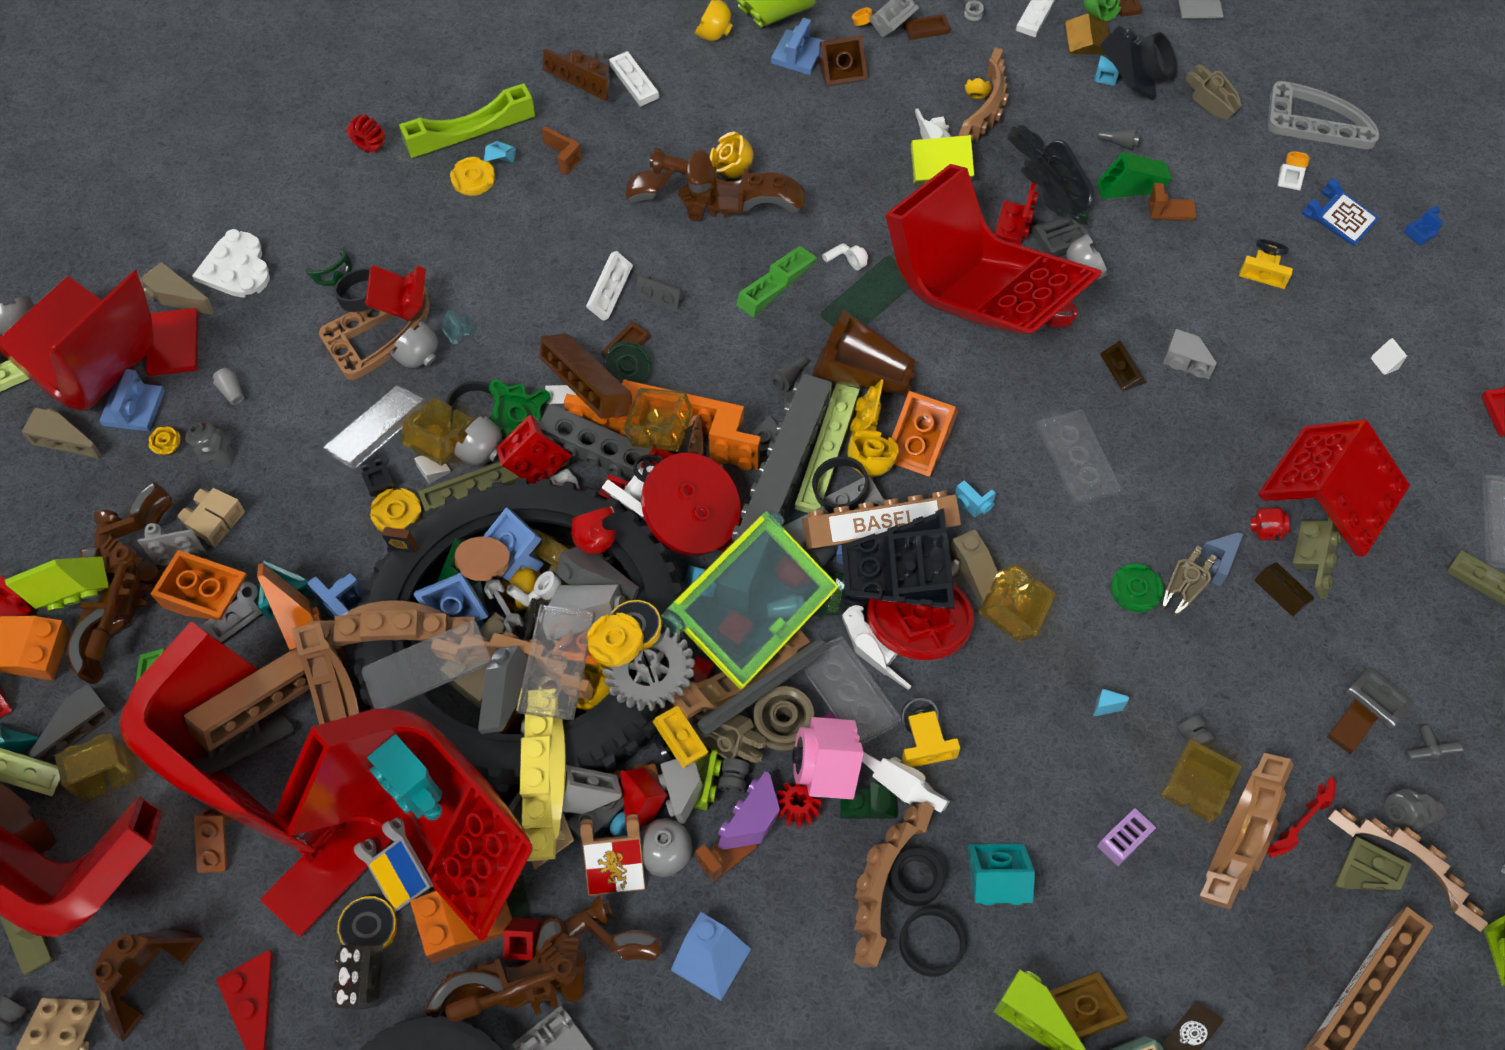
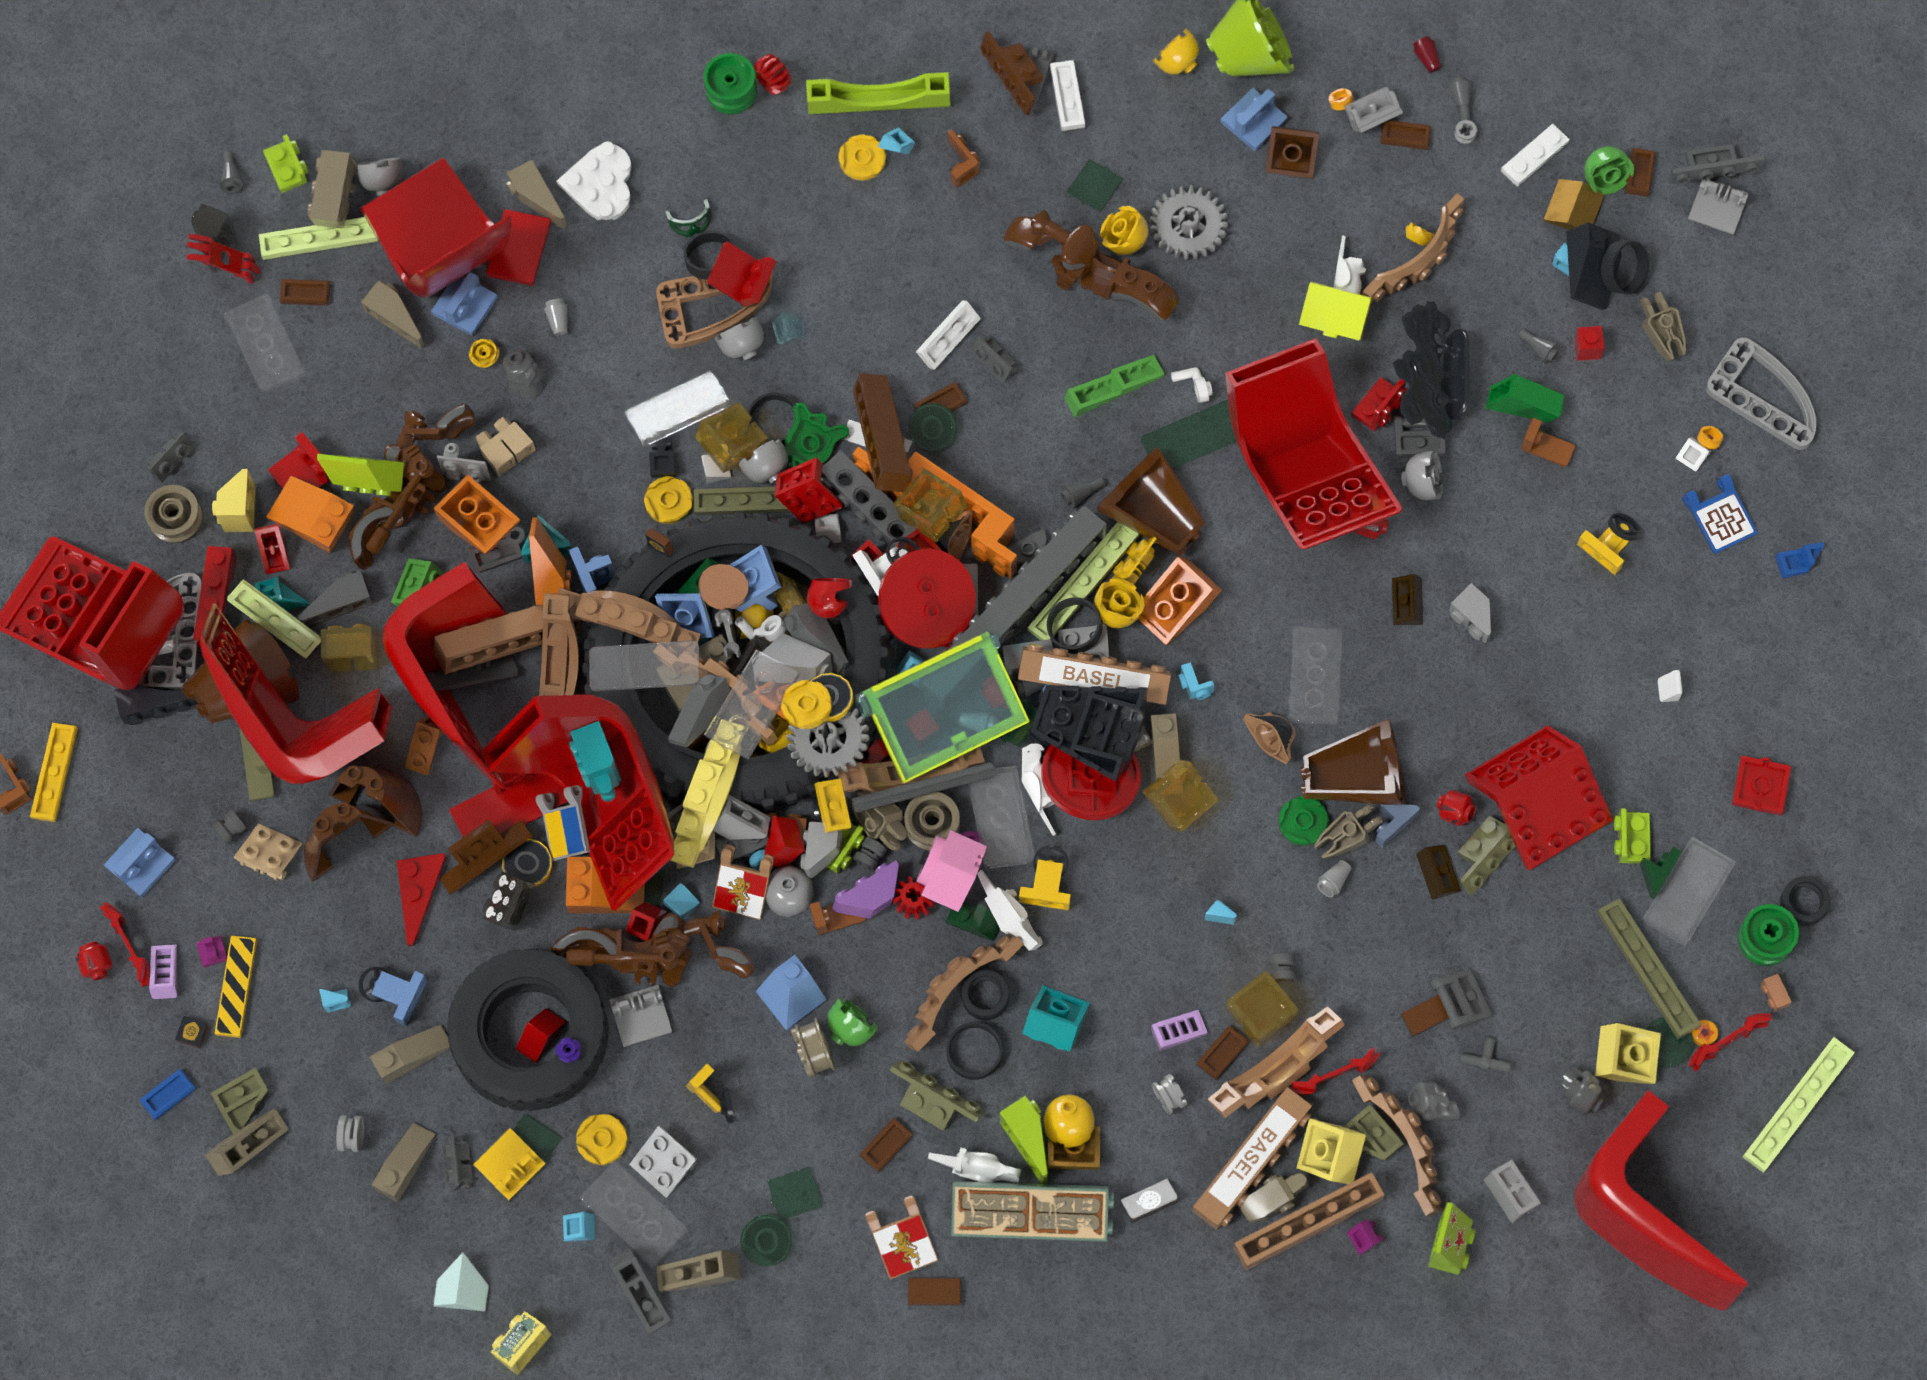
camera: 25 degrees right, 10 degrees up
(180, 901) = (384, 786): none -> reddish brown cone
(309, 931) = (480, 851): none -> reddish brown bracket
(330, 151) = (730, 83): none -> green wheel
(553, 902) = (681, 901): none -> medium azure slope
(686, 136) = (1094, 185): none -> clear green piece
(762, 1009) = (813, 1048): none -> dark tan wheel
(784, 132) = (1191, 207): none -> light grey gear
(789, 966) = (849, 1024): none -> bright green cylinder
(912, 1015) = (931, 1099): none -> olive bracket
(1069, 978) = (1069, 1120): none -> yellow cylinder
(1070, 520) = (1272, 734): none -> medium nougat hat
(1155, 907) = (1169, 1094): none -> light grey wheel
(1161, 121) = (1589, 343): none -> red brick
(1166, 521) = (1357, 769): none -> reddish brown cone
(1180, 843) = (1222, 1053): none -> reddish brown tile
(1196, 630) = (1333, 880): none -> light grey cone
(1273, 945) = (1252, 1158): none -> brick
(1318, 976) = (1274, 1197): none -> hinge
(1347, 902) = (1331, 1151): none -> light yellow slope
(1428, 981) = (1364, 1237): none -> magenta tile
(1435, 494) = (1633, 836): none -> lime bracket
(1480, 514) = (1656, 875): none -> dark green slope

